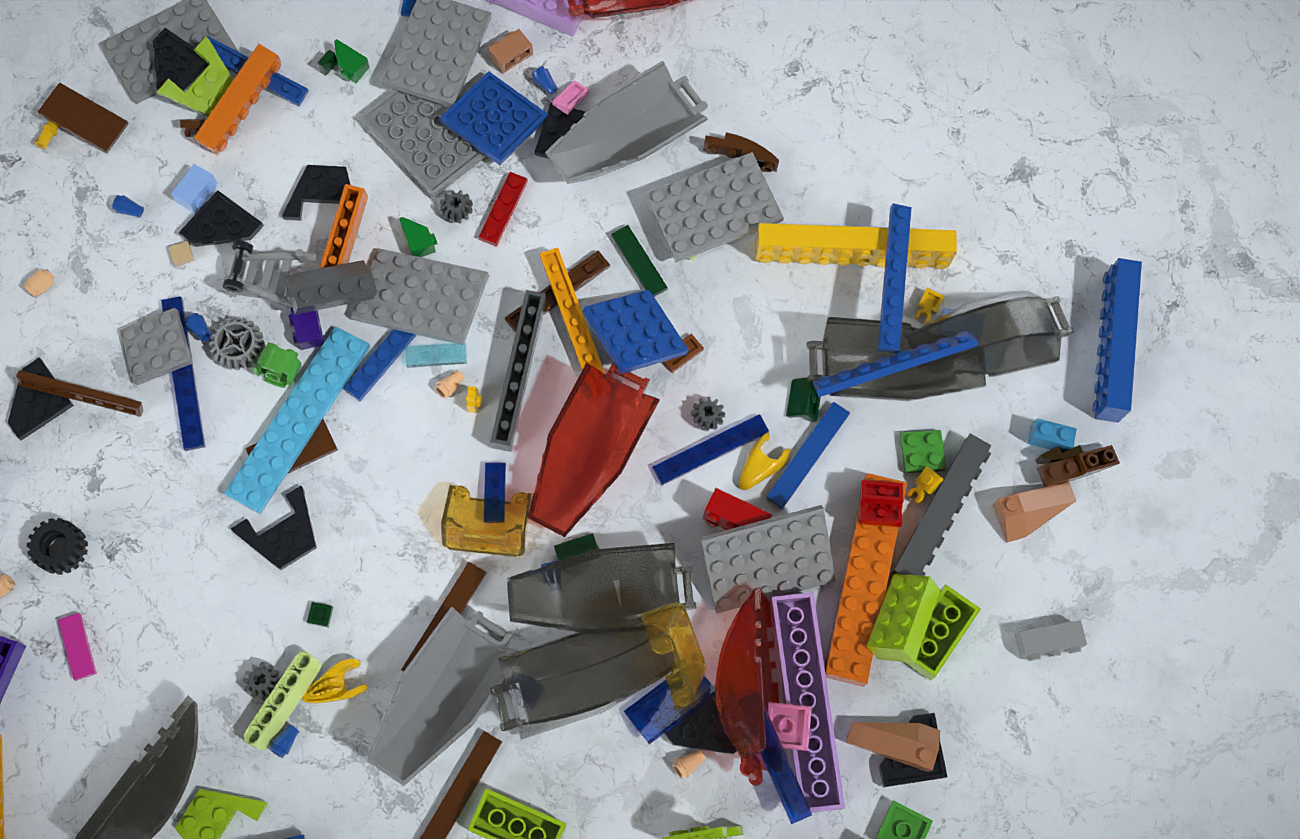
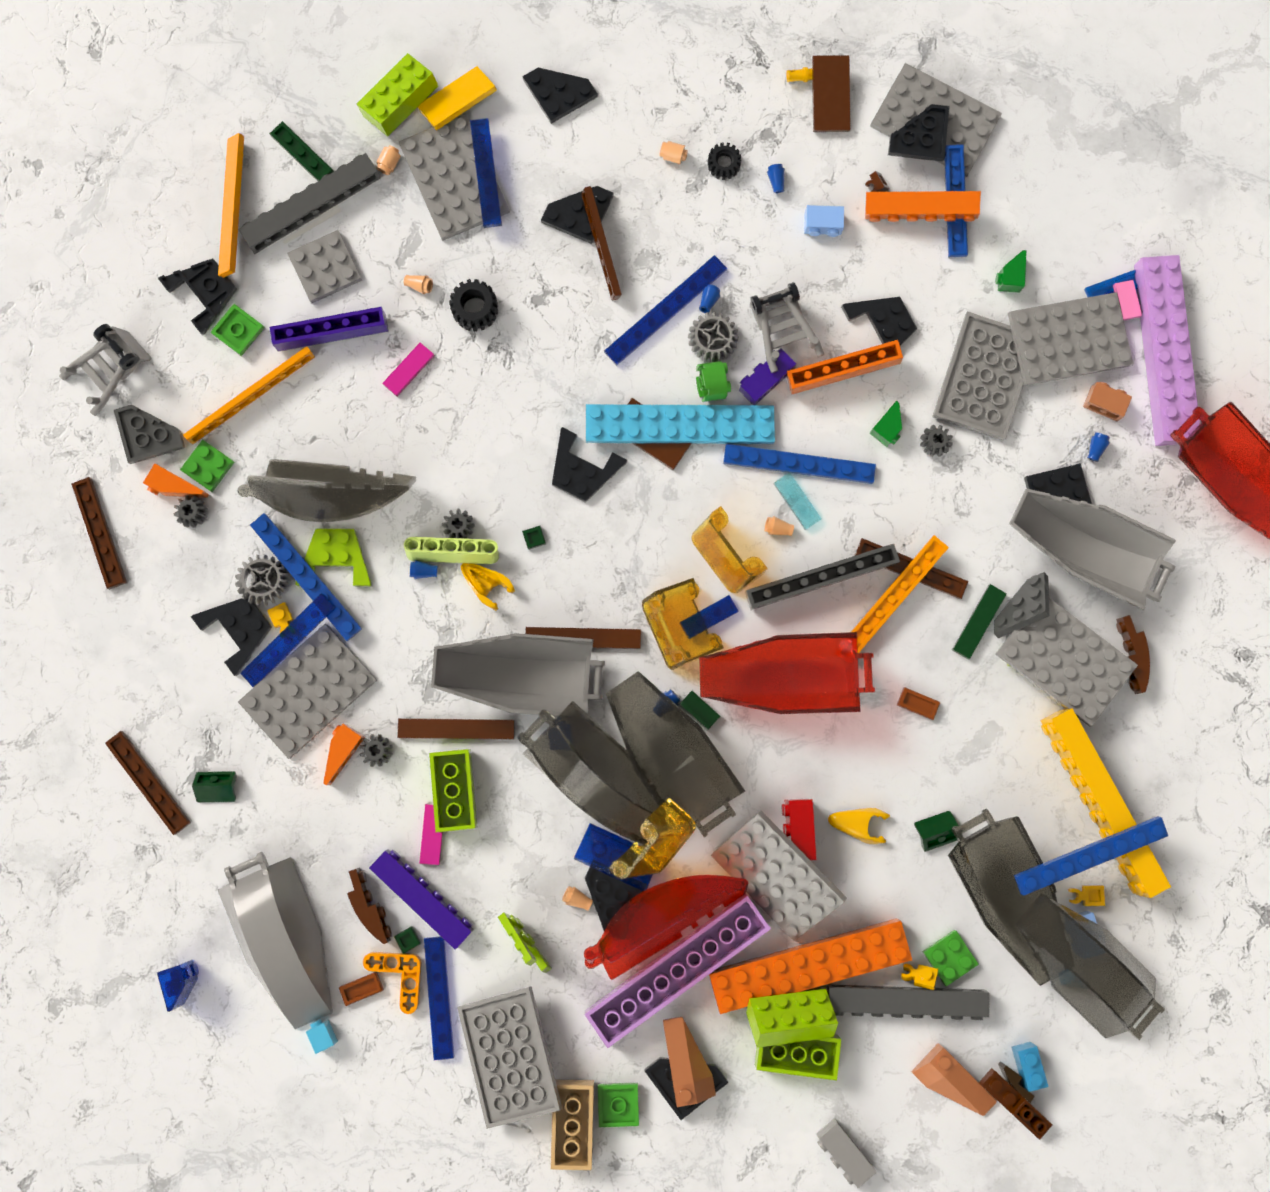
camera: 65 degrees right, 10 degrees up
(84, 252) = (728, 151): none -> black tyre
(156, 346) = (674, 275): light grey plate -> none
(181, 253) = (763, 245): tan tile -> none
(207, 88) = (915, 174): lime wing -> none
(220, 222) = (807, 259): black plate -> none
(327, 62) = (1001, 256): dark green tile -> none
(330, 287) = (801, 382): dark grey slope -> none
(422, 296) = (839, 459): light grey plate -> none
(445, 446) = (722, 557): none -> clear yellow windscreen
(473, 399) = (776, 554): yellow plate -> none
(494, 118) = (1035, 424): blue plate -> none
(503, 209) = (958, 480): red plate -> none
(571, 97) = (1095, 478): bright pink tile -> none
(635, 331) = (912, 655): blue plate -> none
(649, 215) = (1025, 607): none -> dark grey plate
(710, 449) = (847, 774): clear blue tile -> none
(713, 419) = (873, 748): dark grey gear -> none
(783, 775) = (605, 984): clear blue tile -> none
(791, 724) = (647, 966): bright pink tile -> none
(807, 455) = (890, 860): blue tile -> none
(881, 503) = (879, 947): red slope -> none
(889, 365) = (1009, 899): blue plate -> none
(1117, 340) = (1155, 1084): blue brick -> none

